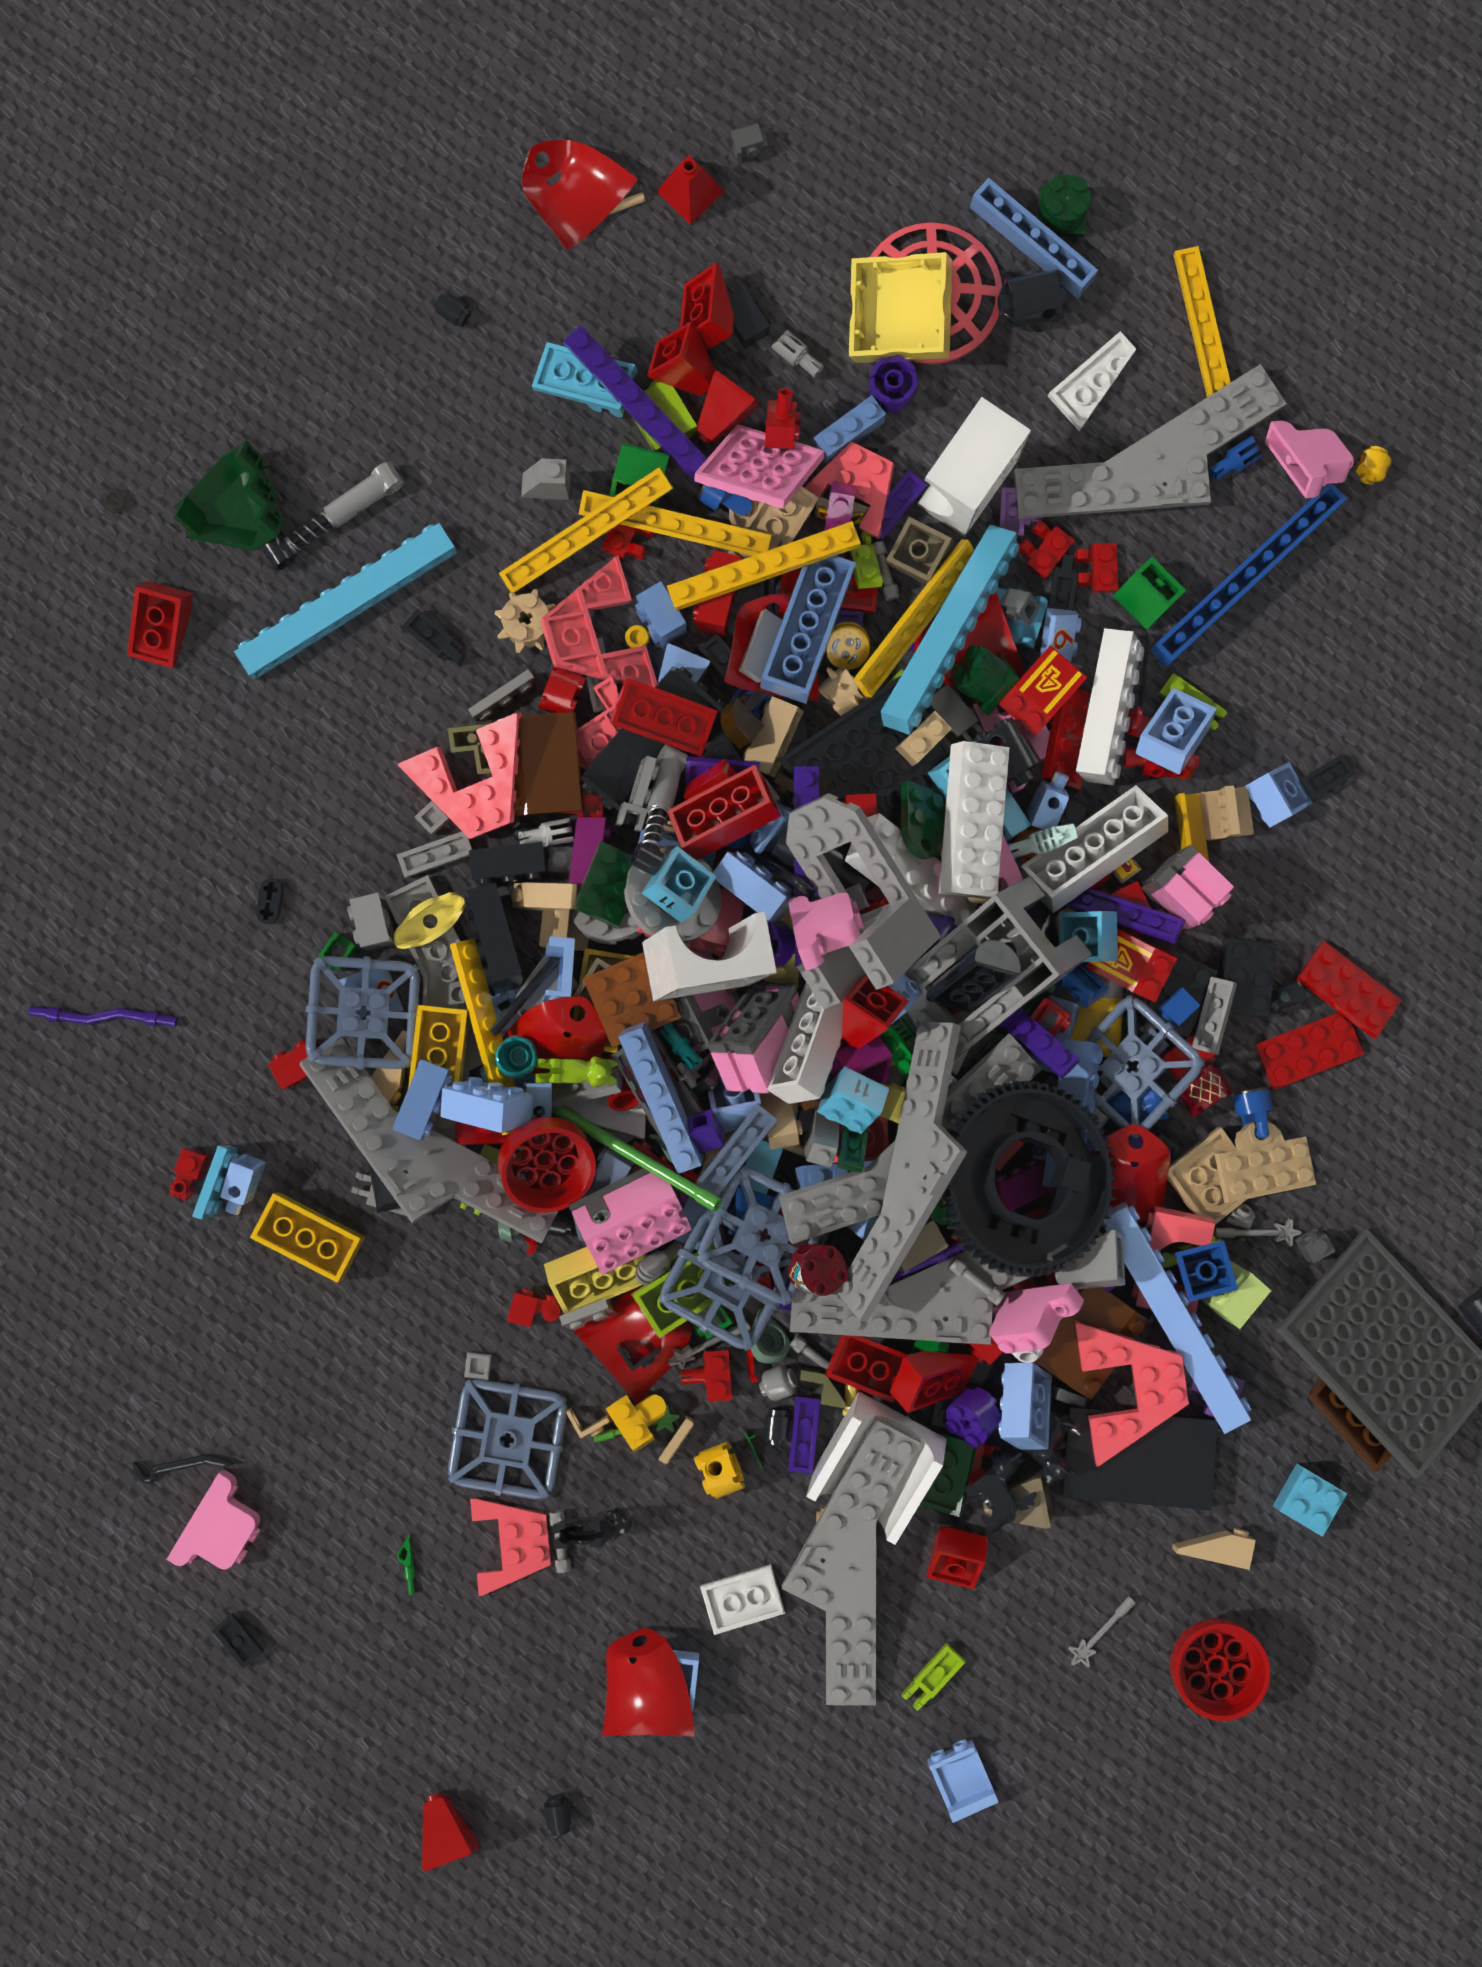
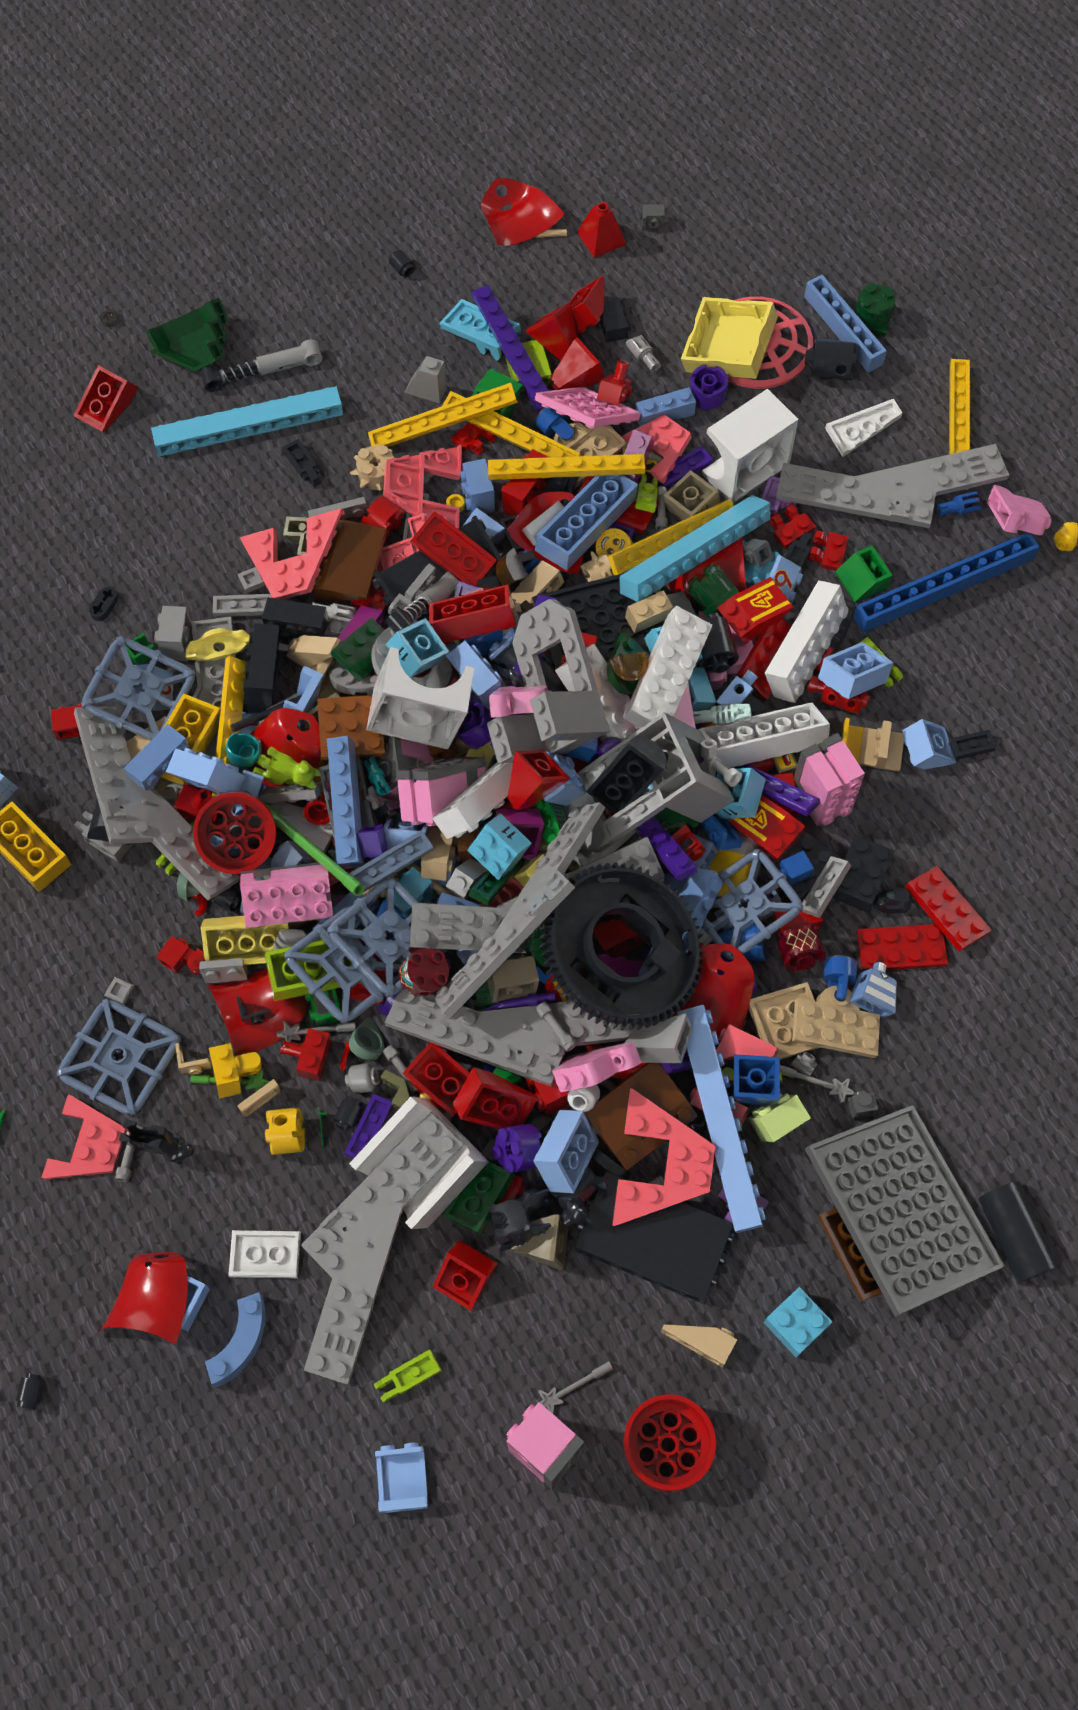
camera: 20 degrees right, 20 degrees down
(756, 1709) = (243, 1343): none -> medium blue brick
(931, 831) = (630, 666): none -> clear orange helmet
(1050, 914) = (713, 763): none -> white bar
(1101, 1718) = (544, 1444): none -> bright pink piece
(1296, 1114) = (875, 991): none -> medium blue torso

